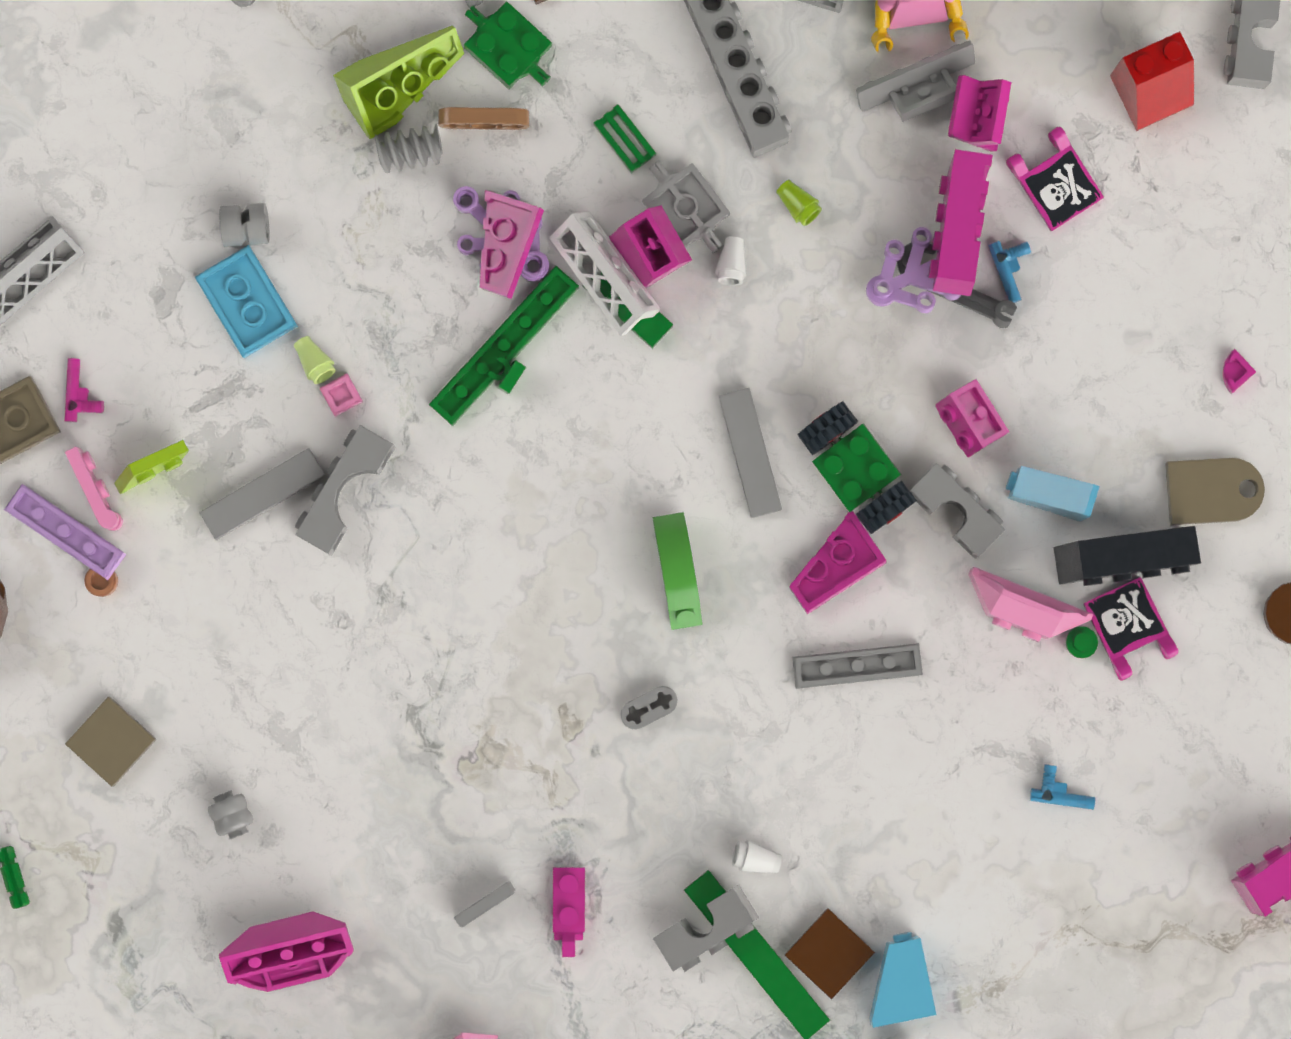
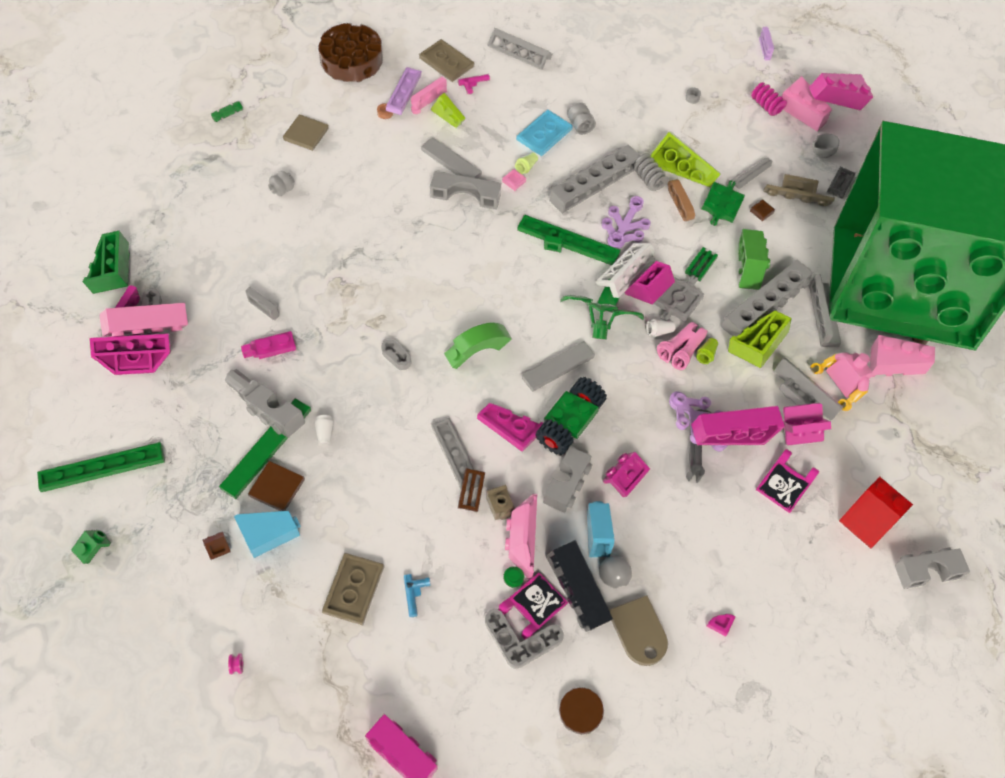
camera: 70 degrees right, 25 degrees down
(287, 952) = (211, 220): dark pink wedge -> none
(369, 173) = (593, 179): none -> light grey brick
(508, 238) = (625, 222): dark pink wing -> none
(643, 963) = (241, 383): none -> light grey piece
(646, 49) = (754, 258): none -> bright green wedge
(707, 360) = (601, 327): none -> green plant
(801, 248) = (670, 349): none -> bright pink piece
(810, 109) = (760, 340): none -> lime wedge
(906, 649) = (468, 507): none -> reddish brown tile
(953, 630) = (494, 498): none -> dark tan brick
(1009, 266) = (724, 470): dark azure hose -> none
(1027, 877) = (353, 589): none -> dark tan tile
(1118, 492) = (615, 572): none -> light grey hair
(1181, 673) = (515, 646): none -> light grey beam

